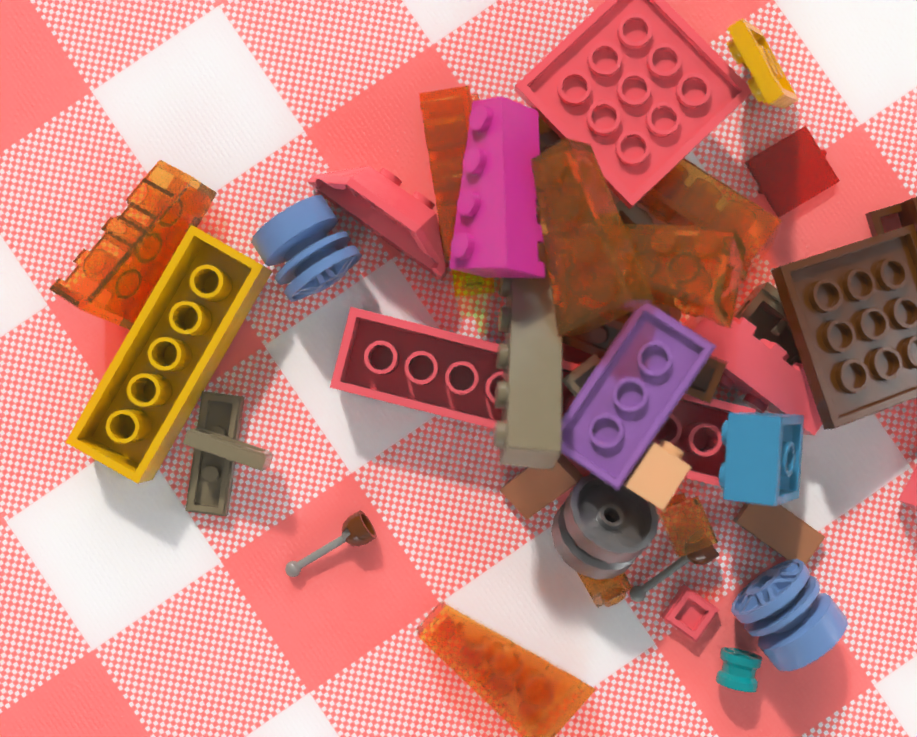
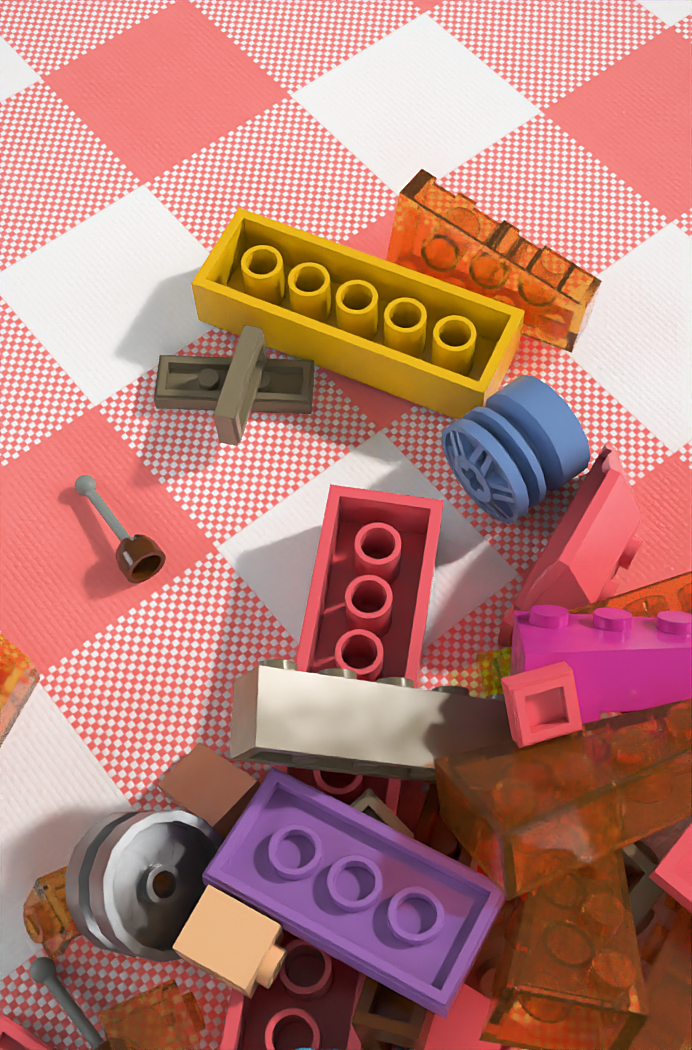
camera: 90 degrees right, 25 degrees down
(536, 261) = (542, 704): none -> coral tile

